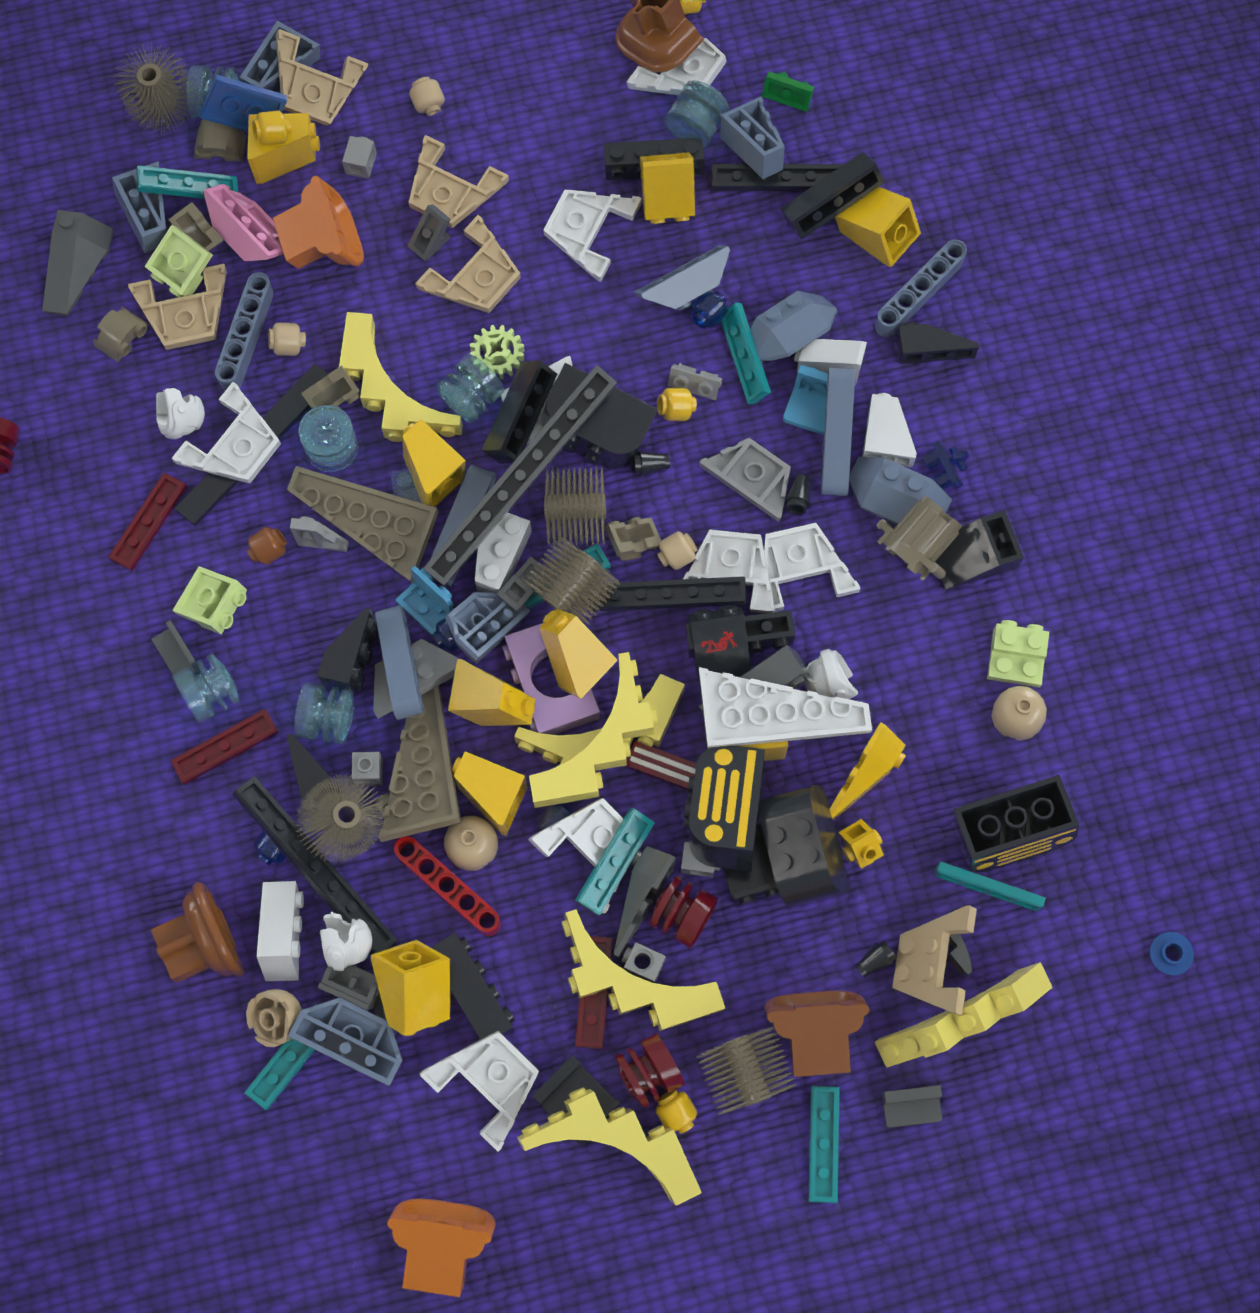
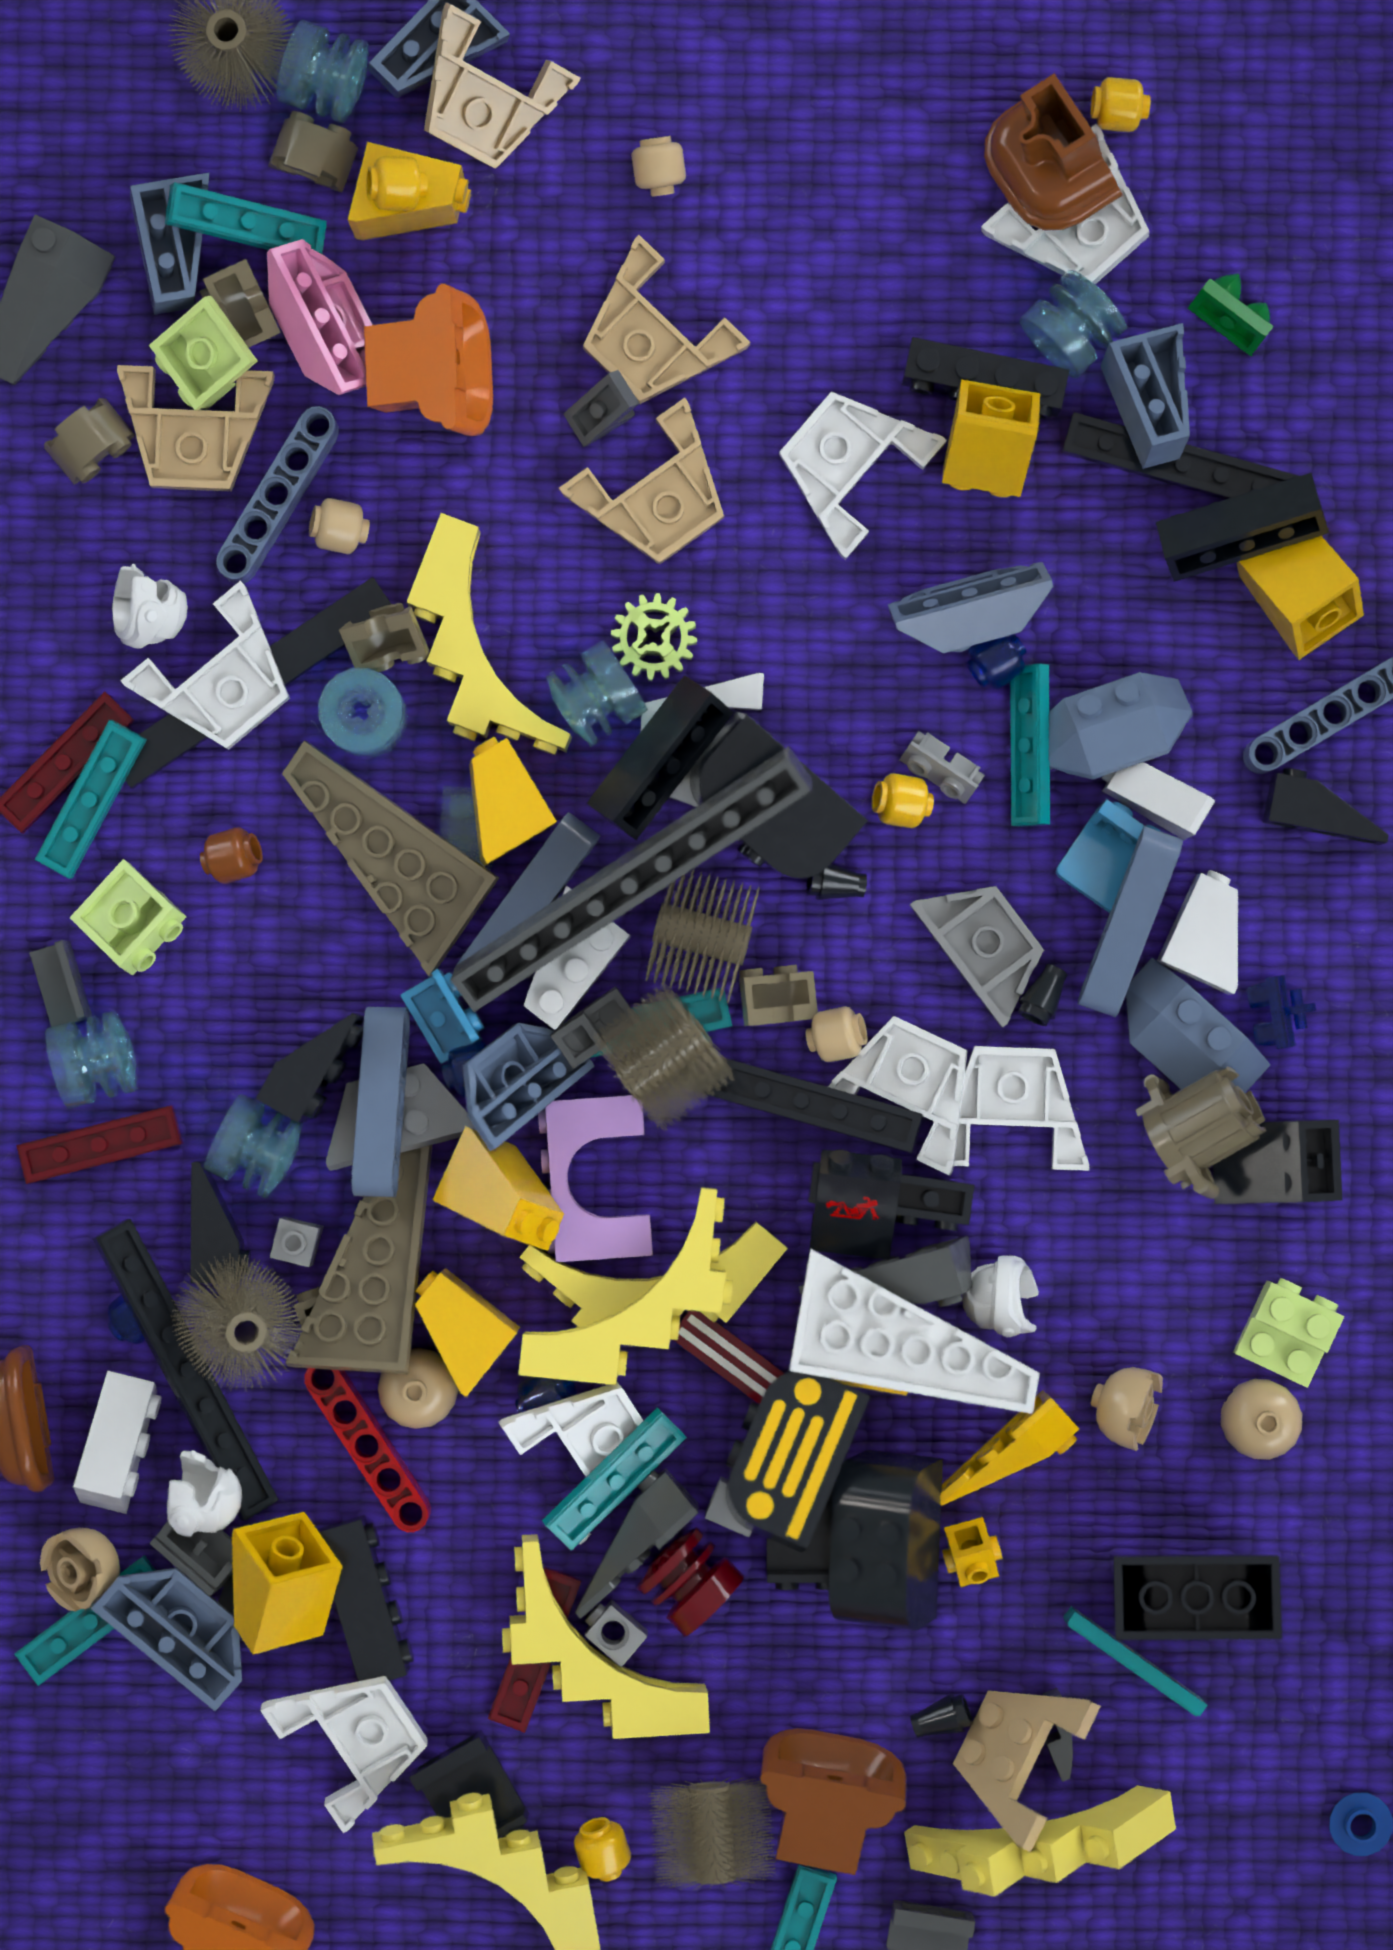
camera: 15 degrees right, 15 degrees up
(169, 536) = (90, 799): none -> teal tile
(233, 101) = (360, 116): blue tile -> none
(315, 535) = (302, 858): light grey wing -> none
(359, 157) = (526, 242): light grey brick -> none
(574, 653) = (639, 1168): yellow slope -> none
(649, 1070) = (579, 1789): dark red wheel -> none
(931, 724) = (1127, 1405): none -> tan cylinder

